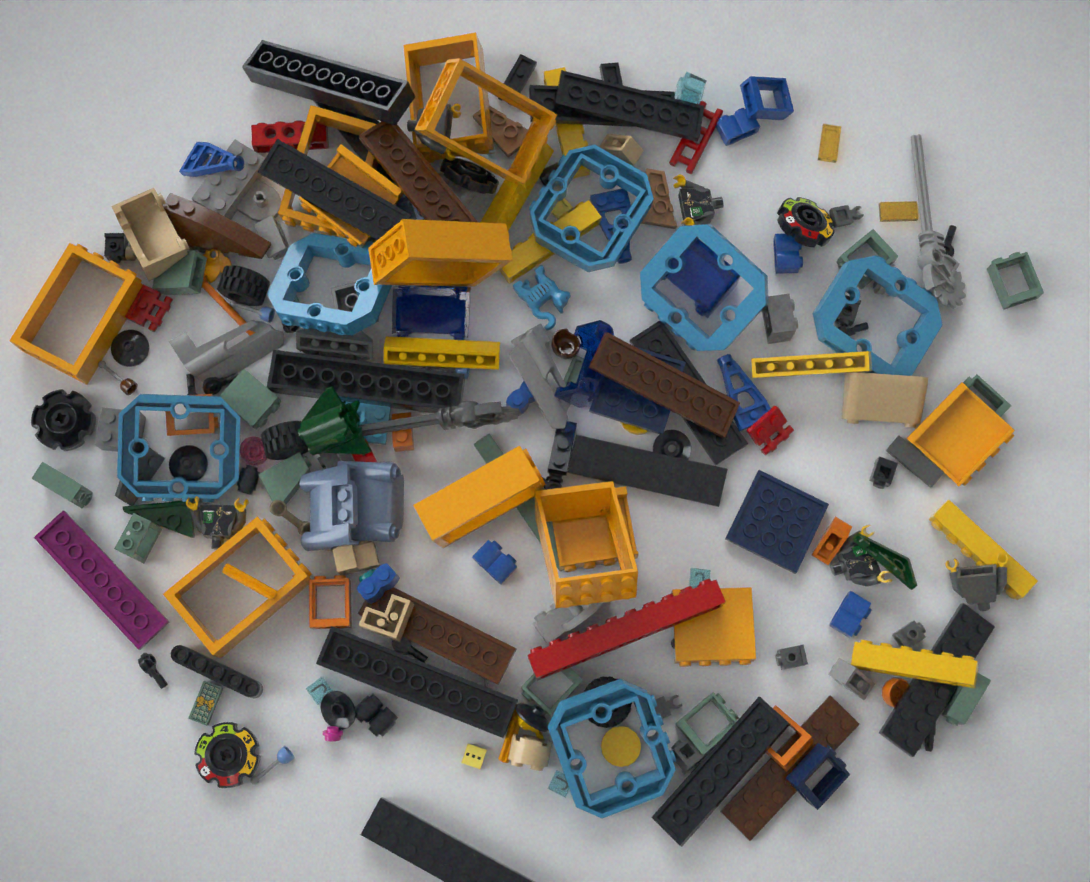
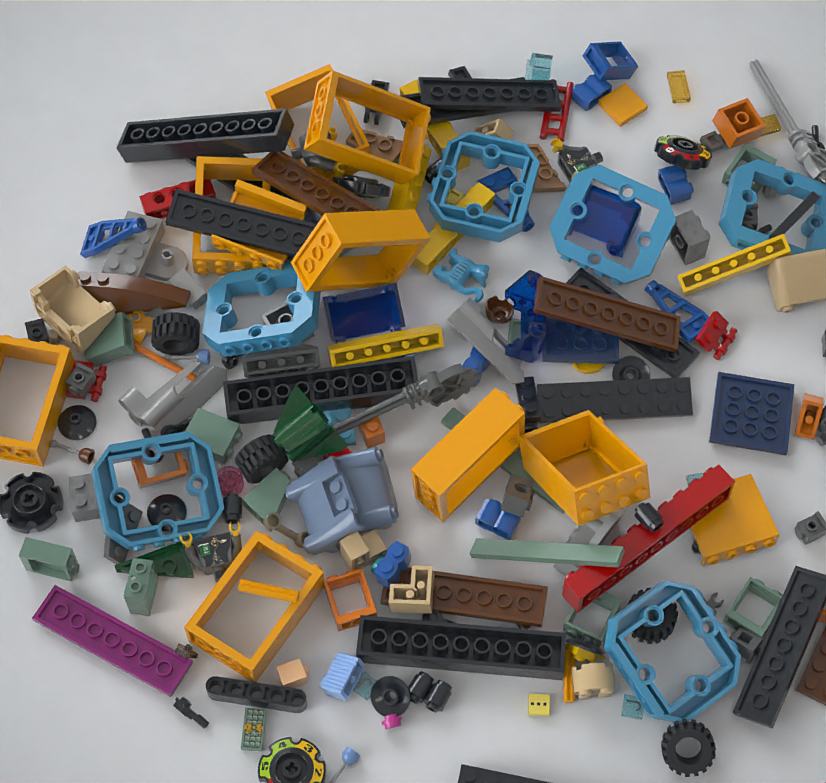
camera: 15 degrees left, 15 degrees down
(146, 312) = (82, 386): none -> dark grey brick
(164, 611) = (185, 651): none -> clear smoke piece
(255, 661) = (293, 673): none -> light nougat brick
(300, 677) = (342, 676): none -> light blue brick
(518, 546) = (518, 496): none -> dark grey brick
(524, 618) = (547, 552): none -> sand green tile
(589, 856) = (693, 764): none -> black tyre
(620, 746) = (678, 655): yellow tile -> none
(627, 617) = (648, 517): none -> black brick
(765, 148) = (622, 104): none -> light orange tile
(873, 205) = (738, 123): none -> orange brick
(890, 329) = (796, 215): none -> black beam

